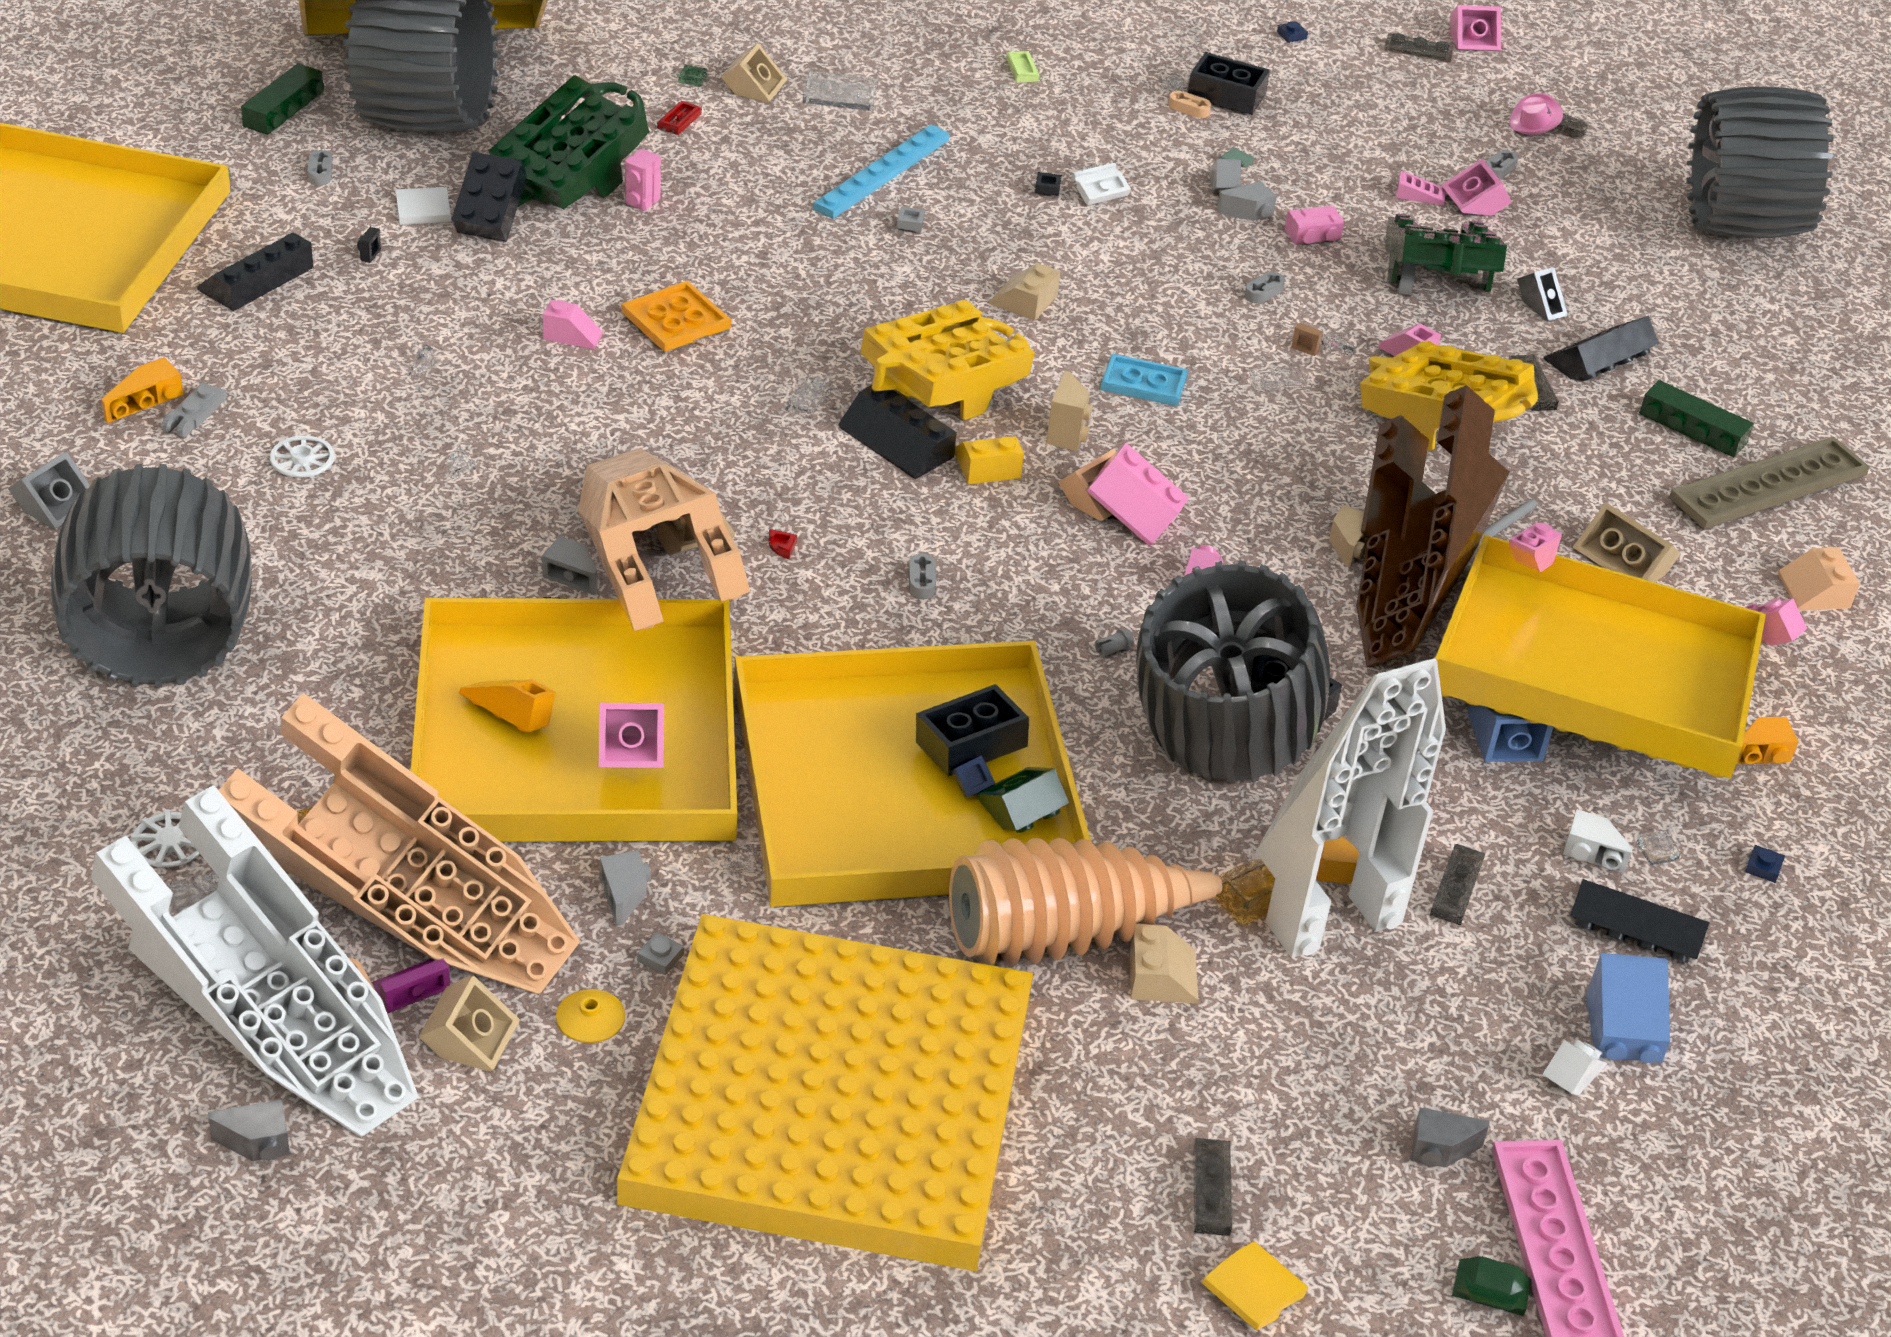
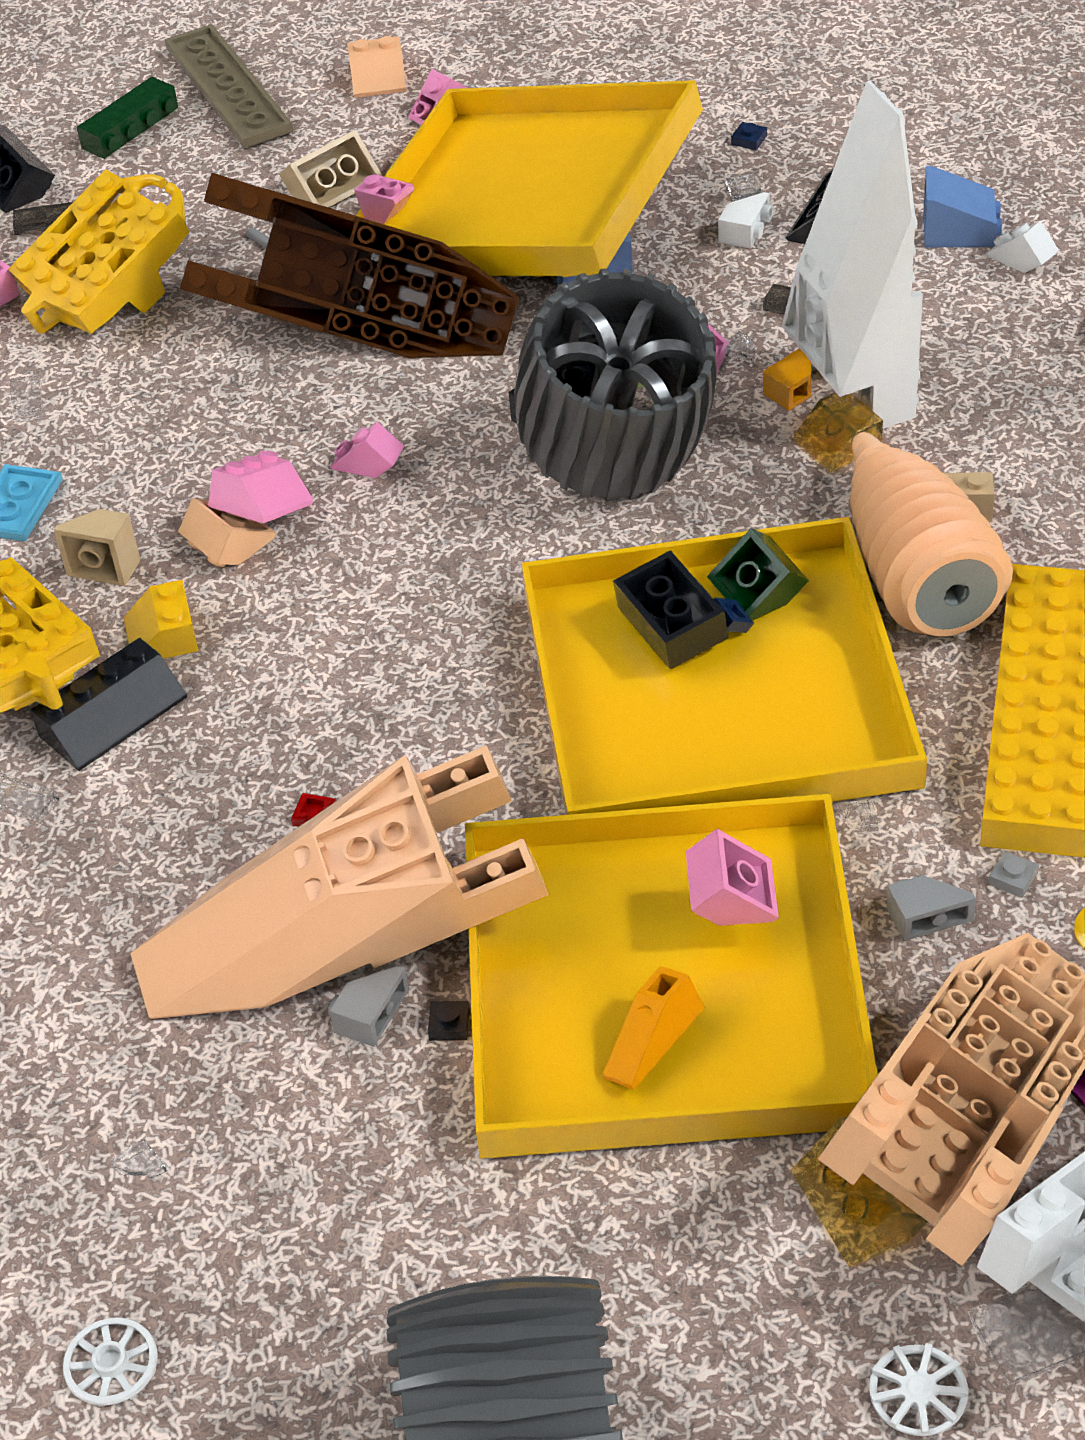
camera: 80 degrees left, 5 degrees up
(917, 576) = (375, 681): light grey beam -> none
(1119, 641) = (482, 518): light grey pin -> none
(1347, 534) = (309, 349): tan slope -> none

